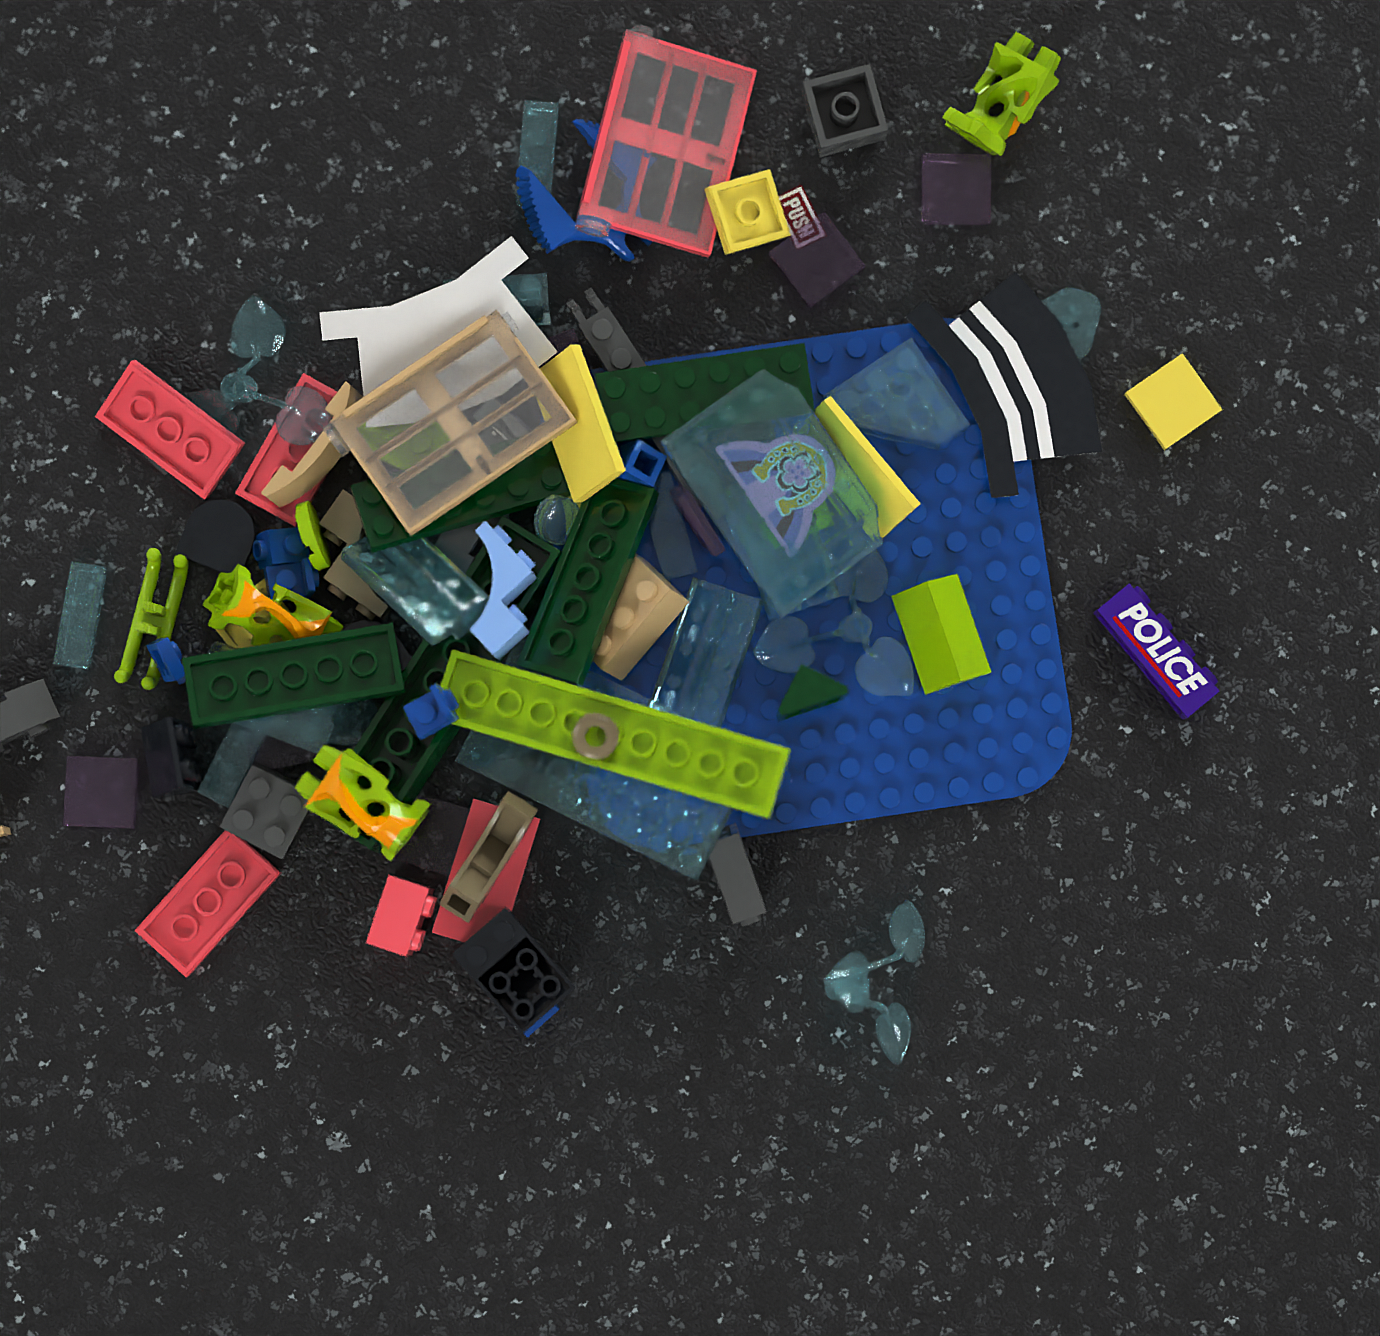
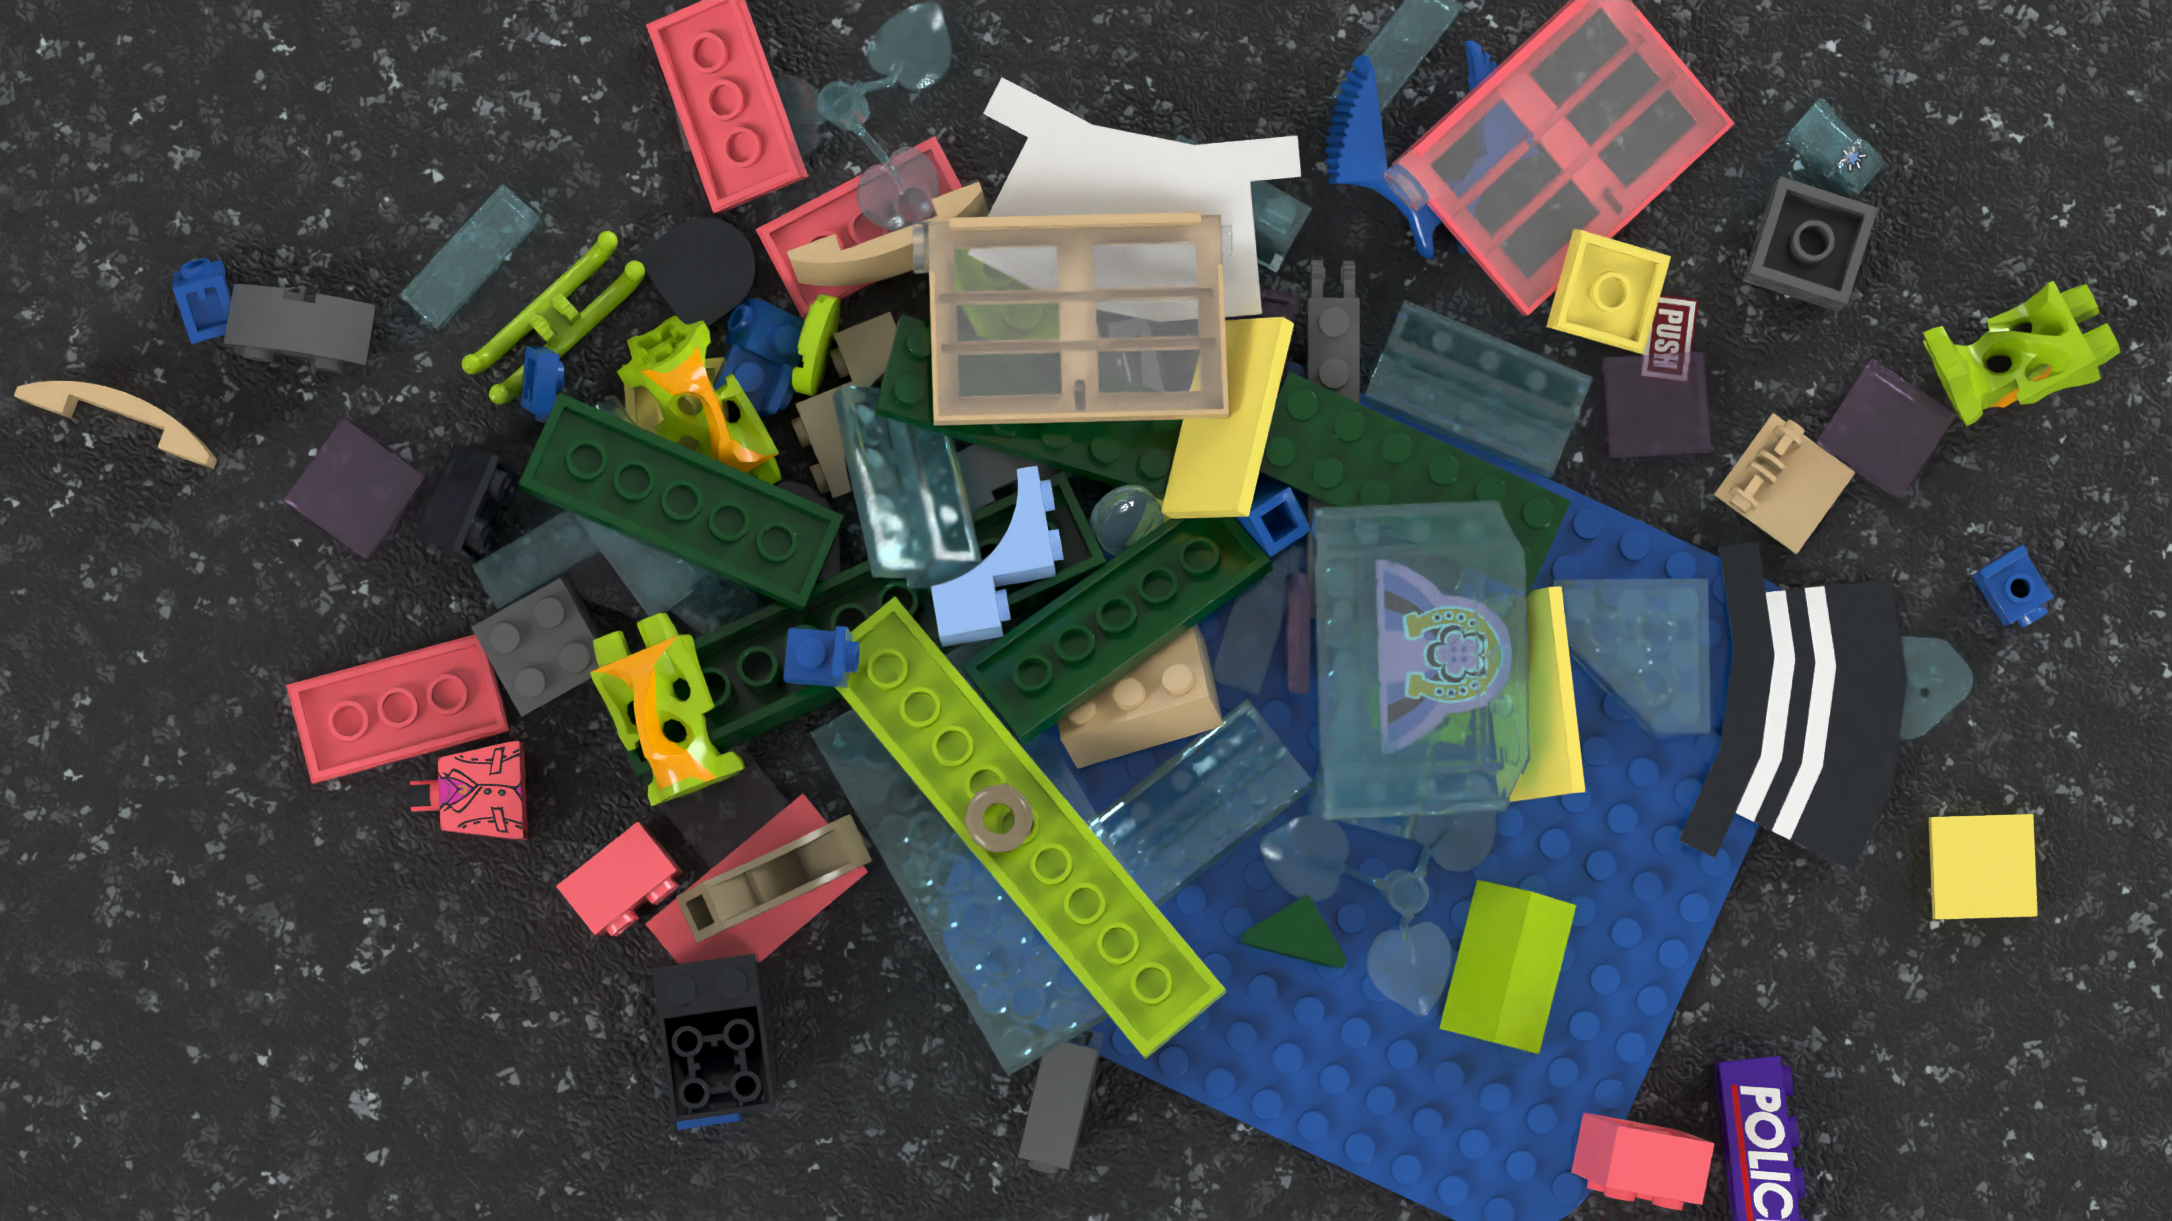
camera: 30 degrees right, 0 degrees up
(286, 919) = (478, 792): none -> coral torso
(709, 315) = (1477, 389): none -> clear light blue brick
(823, 47) = (1835, 148): none -> clear light blue leg
(918, 256) = (1784, 483): none -> tan hinge
(1076, 236) = (1995, 585): none -> blue brick
(1090, 694) = (1642, 1161): none -> coral brick

